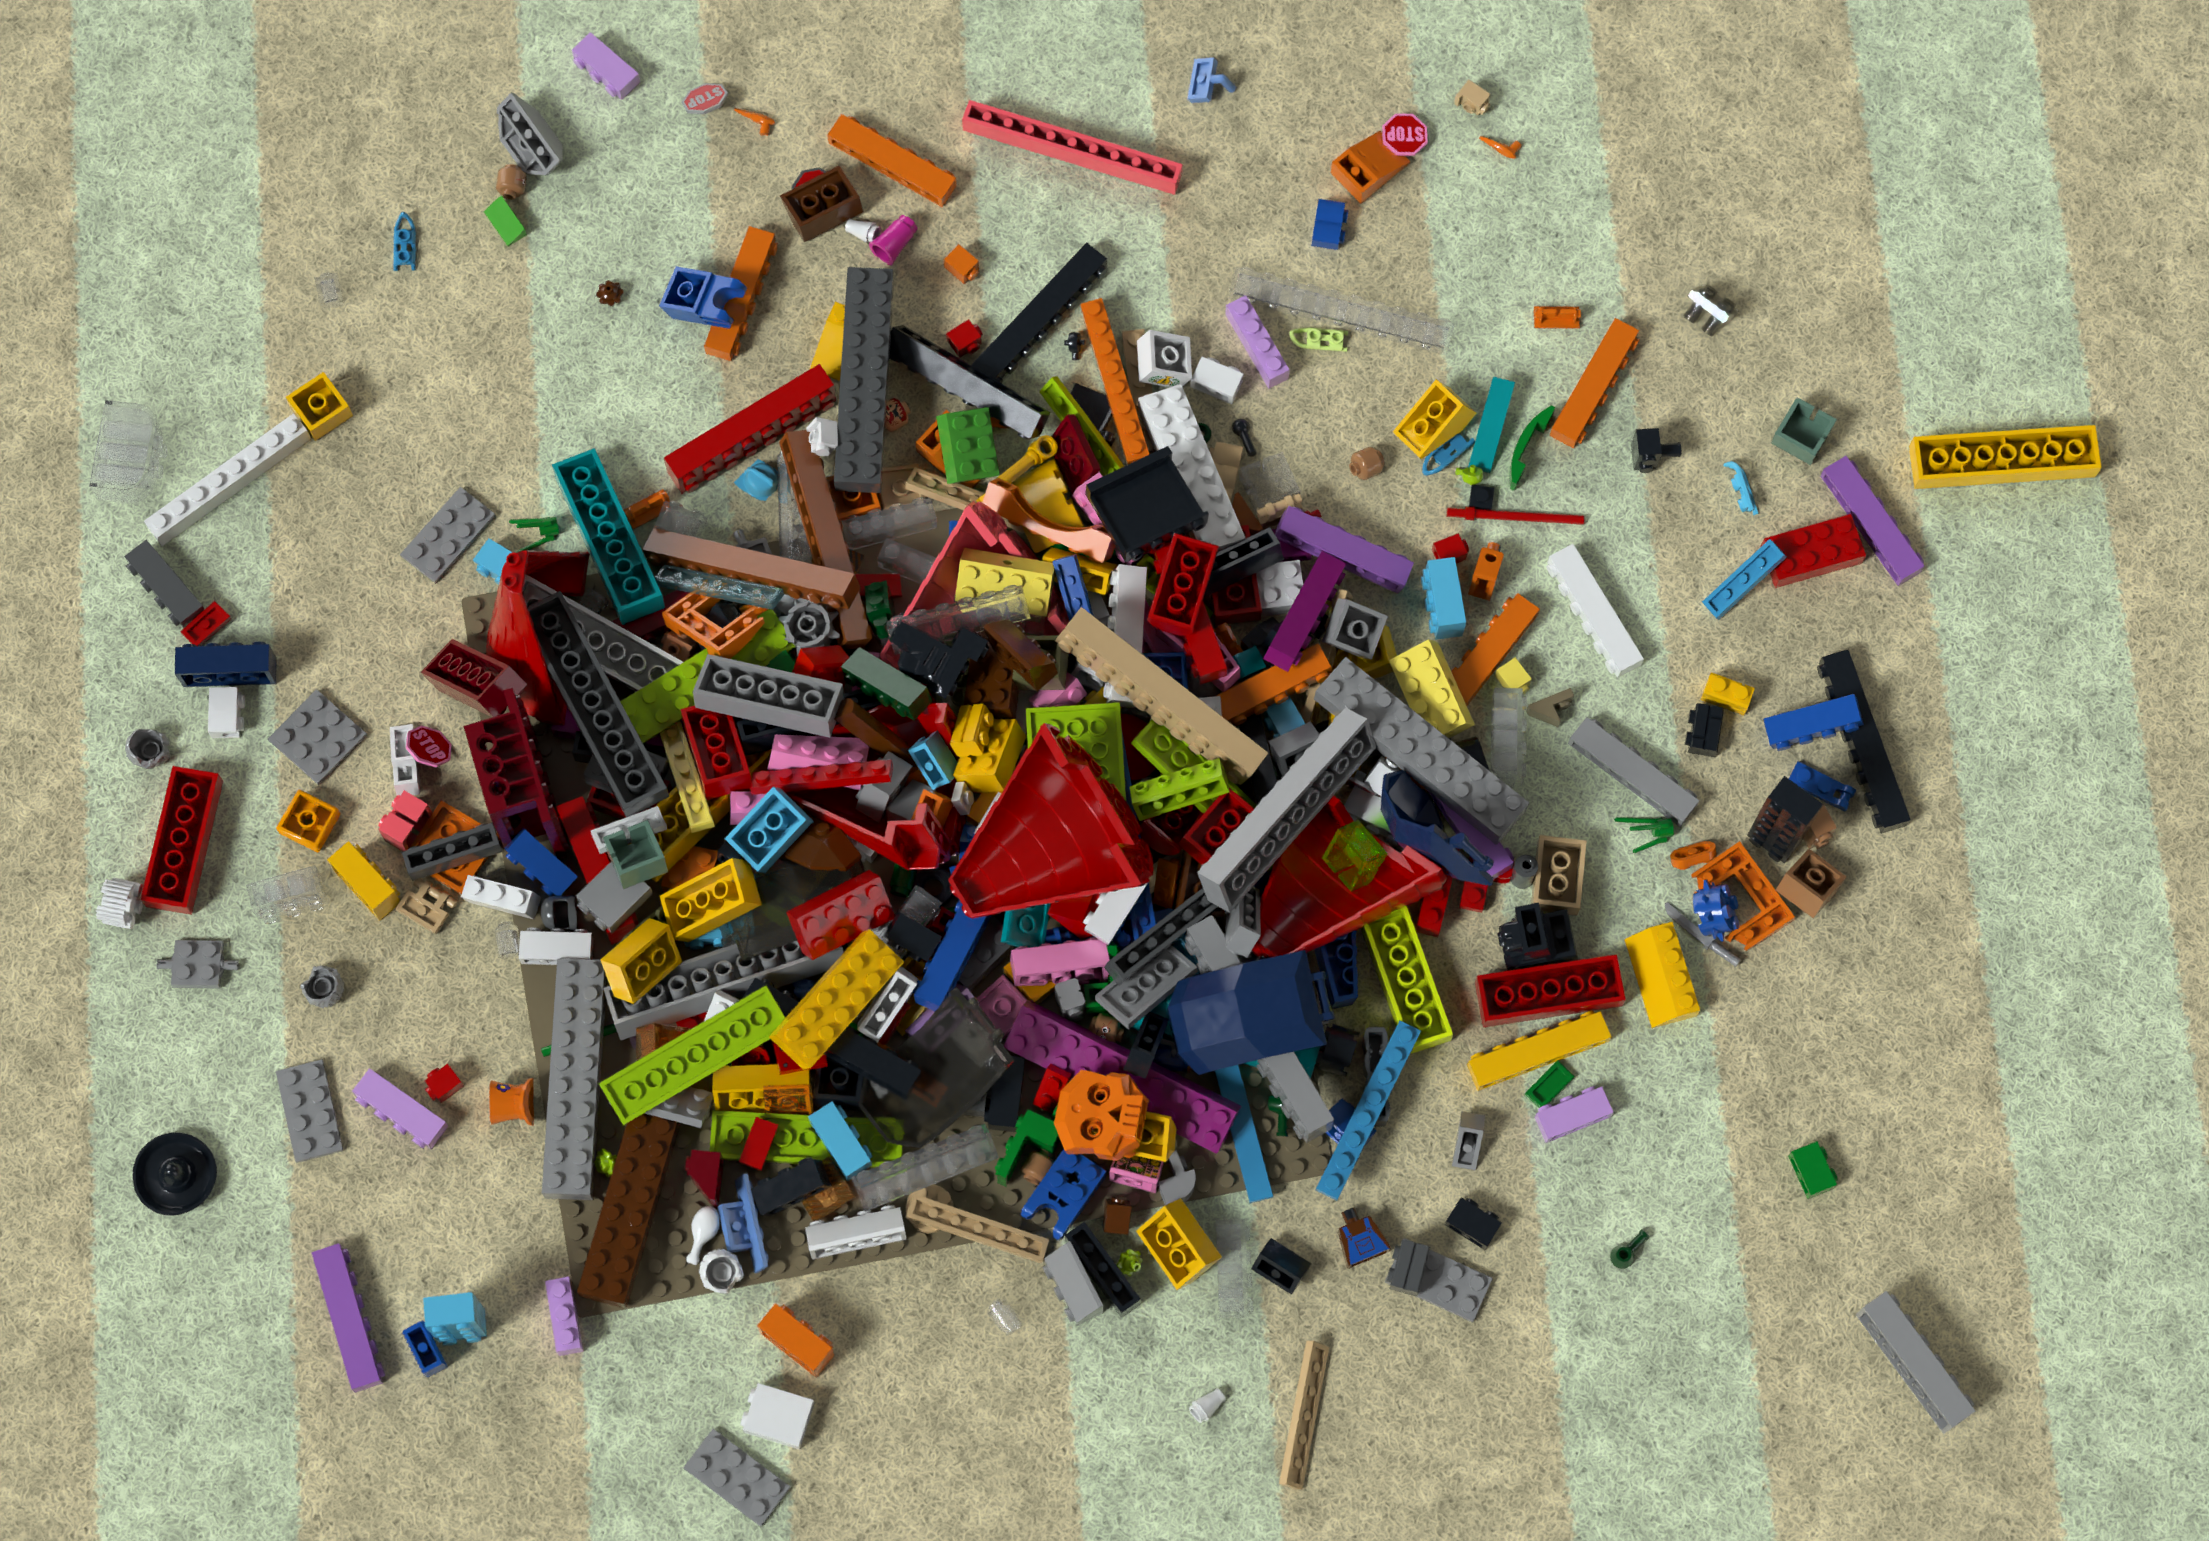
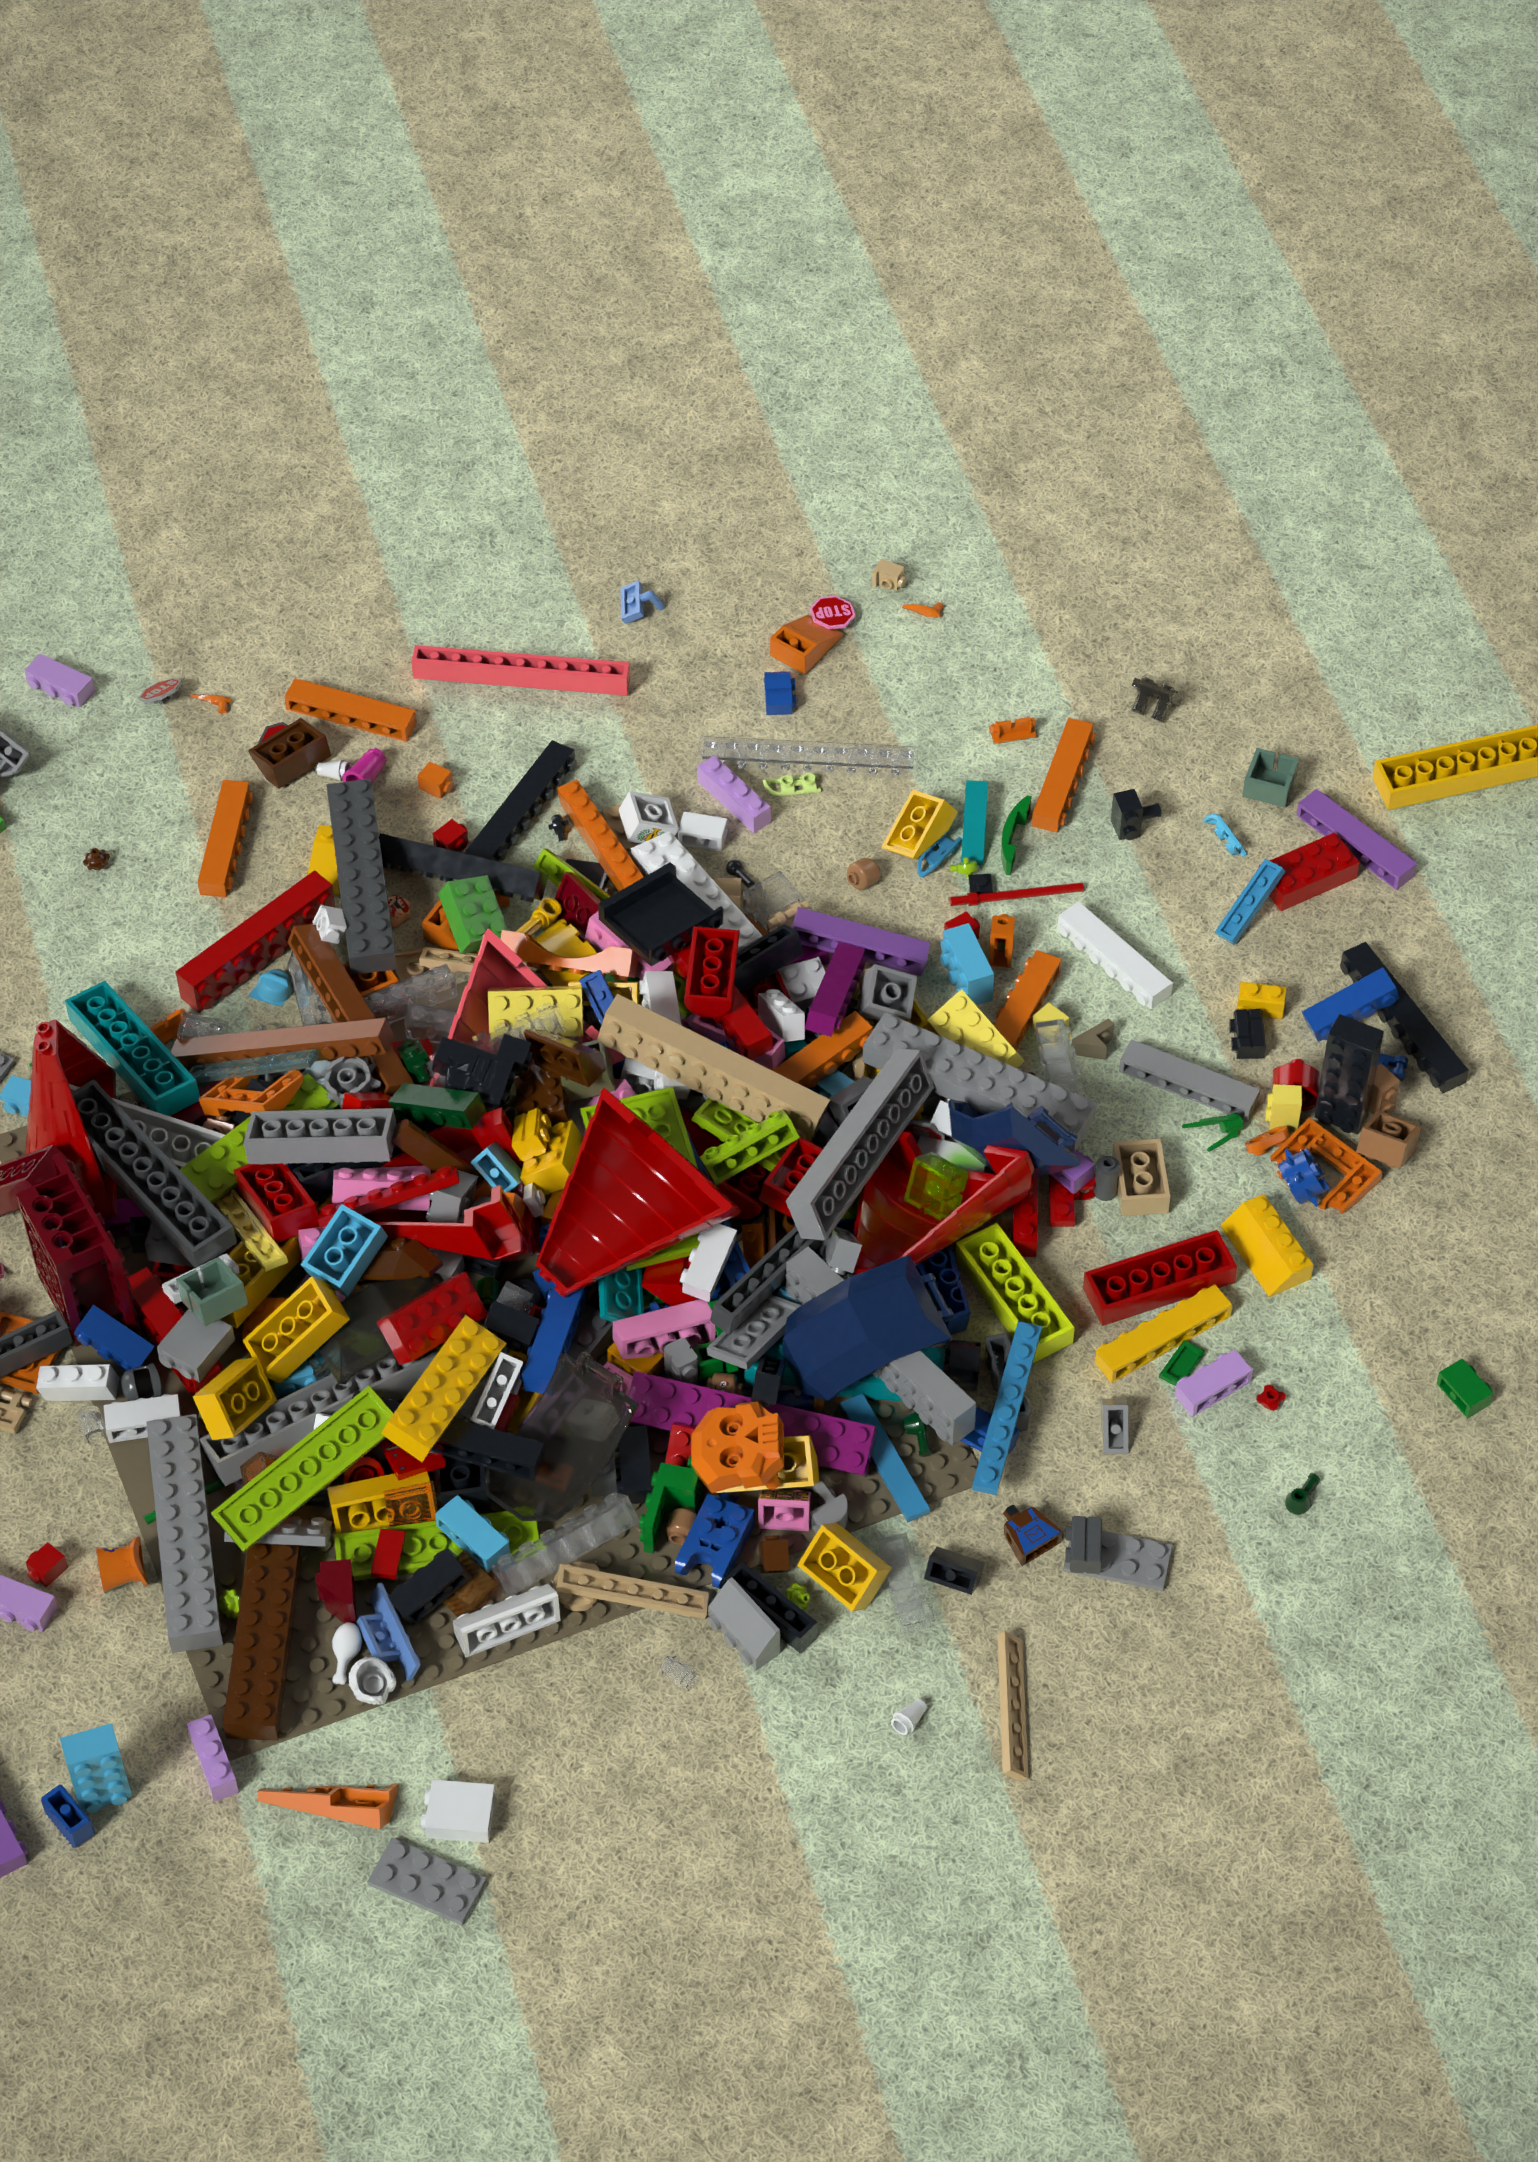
camera: 10 degrees left, 20 degrees down
(671, 1382) = (349, 1804): none -> orange wedge
(700, 297) = (187, 841): blue brick -> none
(796, 1339) = (464, 1730): orange brick -> none
(1244, 633) = (781, 1015): none -> white brick
(1473, 1222) = (1139, 1497): black brick -> none
(1537, 938) = (1132, 1227): black brick -> none
(1624, 1147) = (1271, 1404): none -> red plate
(1708, 941) = (1303, 1212): light grey sword -> none
(1717, 826) = (1284, 1106): none -> light yellow brick
(1735, 803) = (1299, 1074): none -> red brick

